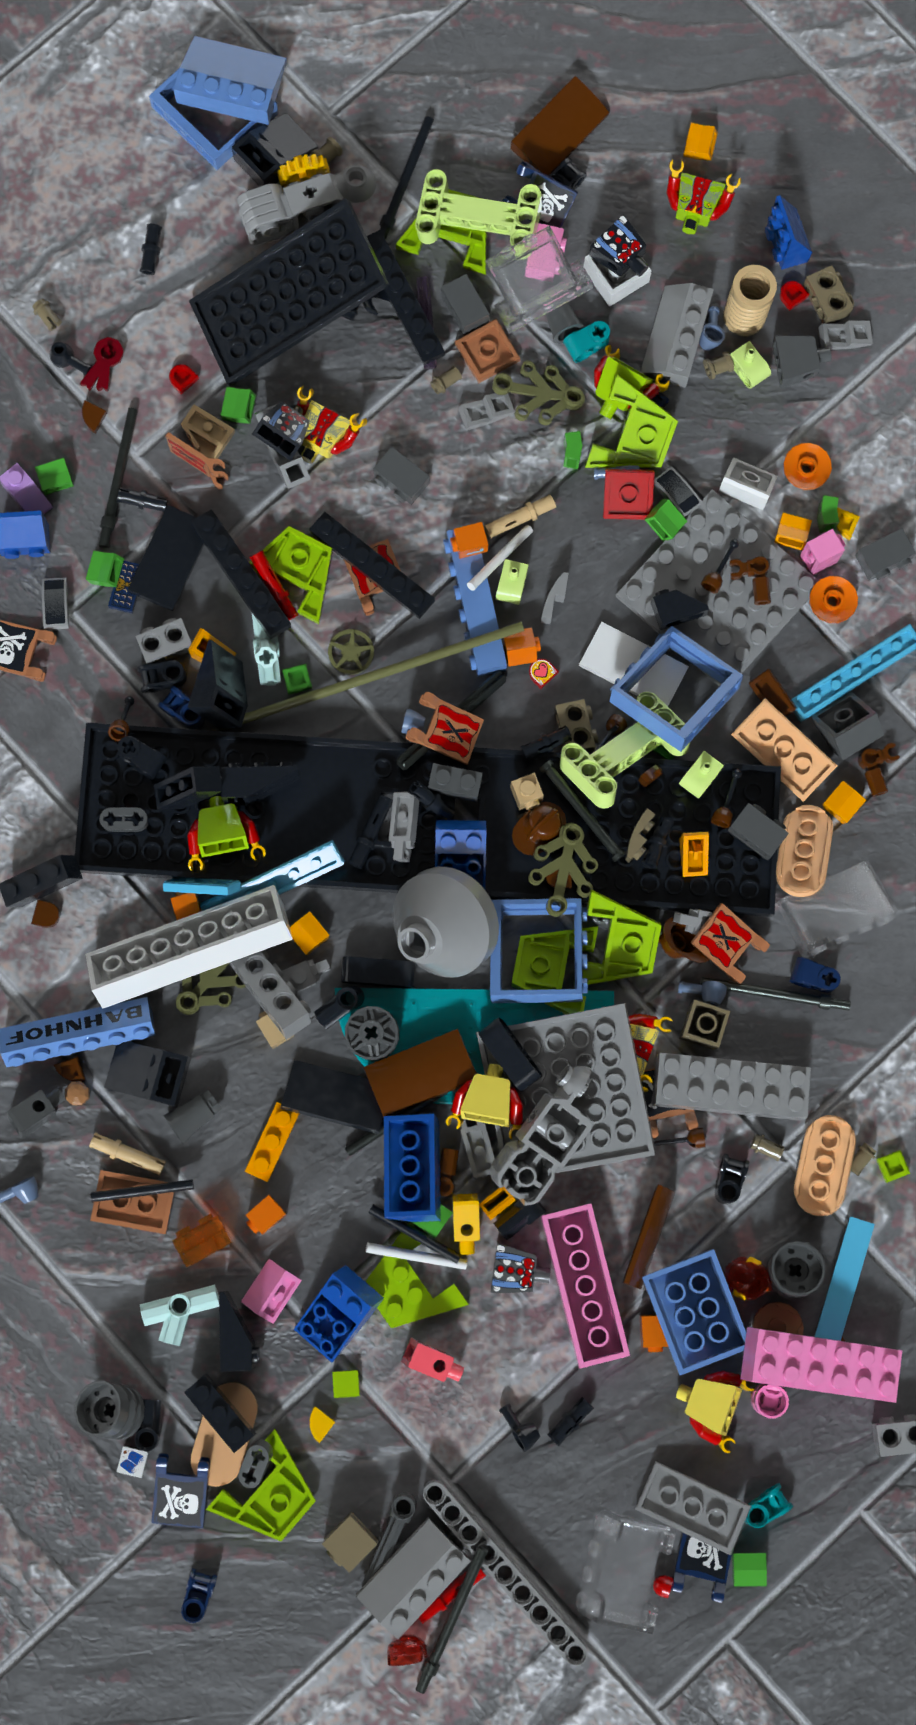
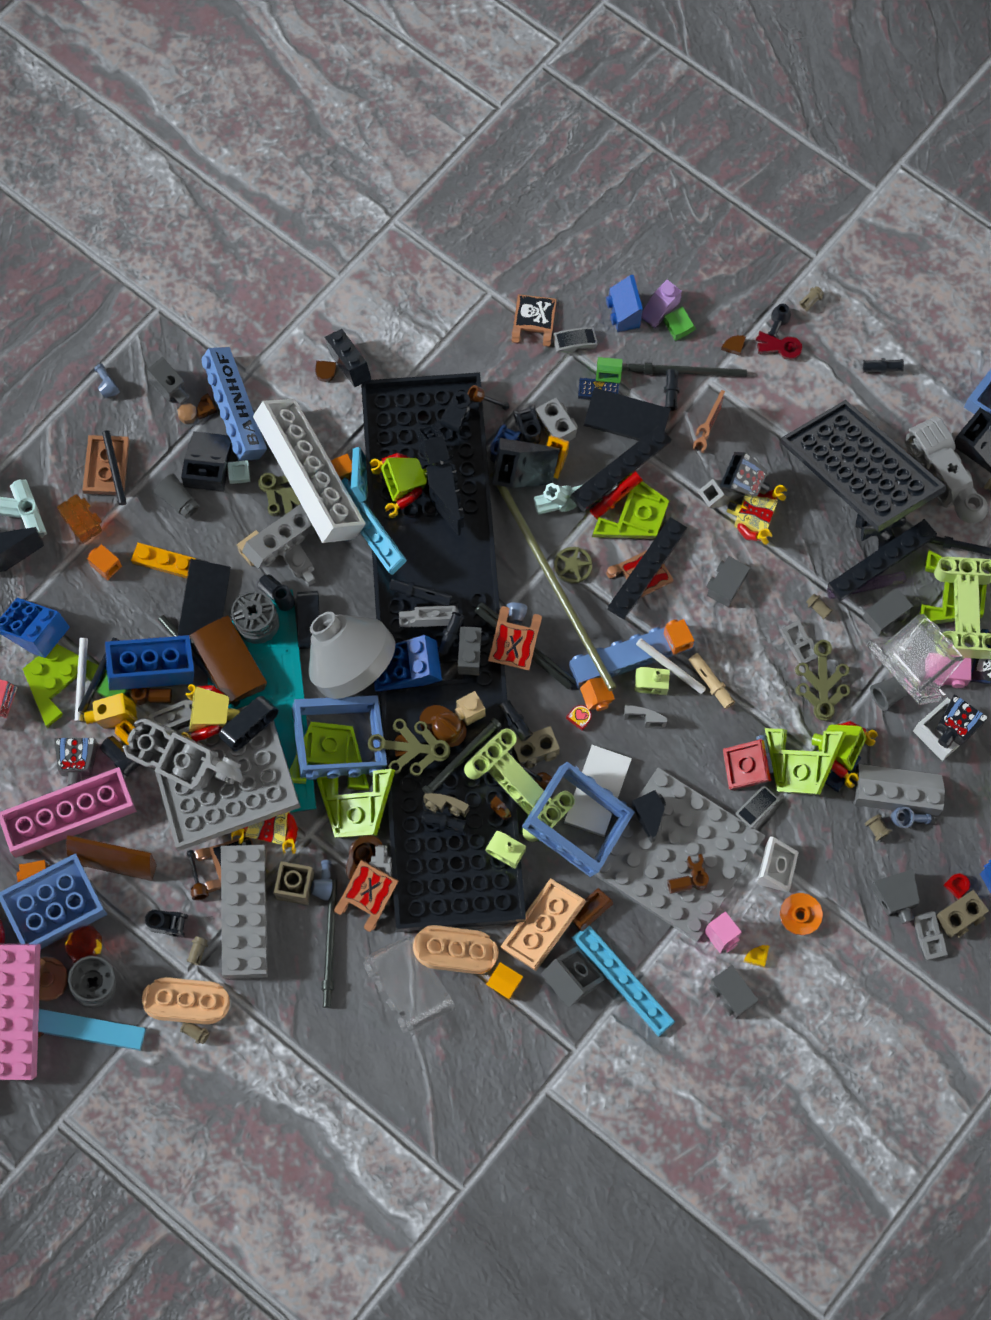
camera: 85 degrees right, 10 degrees down
(124, 826) = (409, 408): dark grey beam -> none
(126, 1153) = (145, 448): tan pin -> none
(169, 1036) = (238, 472): none -> light aqua plate
(182, 377) = (780, 405): red tile -> none
(206, 432) = (735, 429): tan wing -> none
(238, 405) = (765, 448): bright green piece -> none
(271, 1291) = (44, 575): bright pink panel -> none
(297, 679) = (543, 527): bright green tile -> none
(302, 169) = (975, 464): yellow gear -> none
(308, 933) = (333, 562): light orange piece -> none
(487, 351) = (851, 636): nougat tile -> none
(573, 448) = (777, 714): bright green piece -> none
(584, 342) = (875, 713): teal piece -> none
(665, 520) = (729, 798): bright green piece -> none
(694, 853) = (436, 852): light orange slope -> none
(713, 581) = (681, 842): reddish brown hinge -> none
(723, 816) = (474, 872): hinge -> none
(749, 300) = (945, 827): tan piece -> none
(750, 365) = (883, 853): yellowish green piece -> none
(758, 831) = (464, 902): dark grey brick -> none
(792, 531) = (740, 908): light orange piece -> none
(810, 974) = (348, 970): dark blue piece -> none
(827, 514) = (760, 936): bright green piece -> none
(838, 589) = (686, 940): orange dish -> none
(869, 760) = (545, 1000): reddish brown bar -> none
(893, 1166) = (192, 1061): lime tile -> none

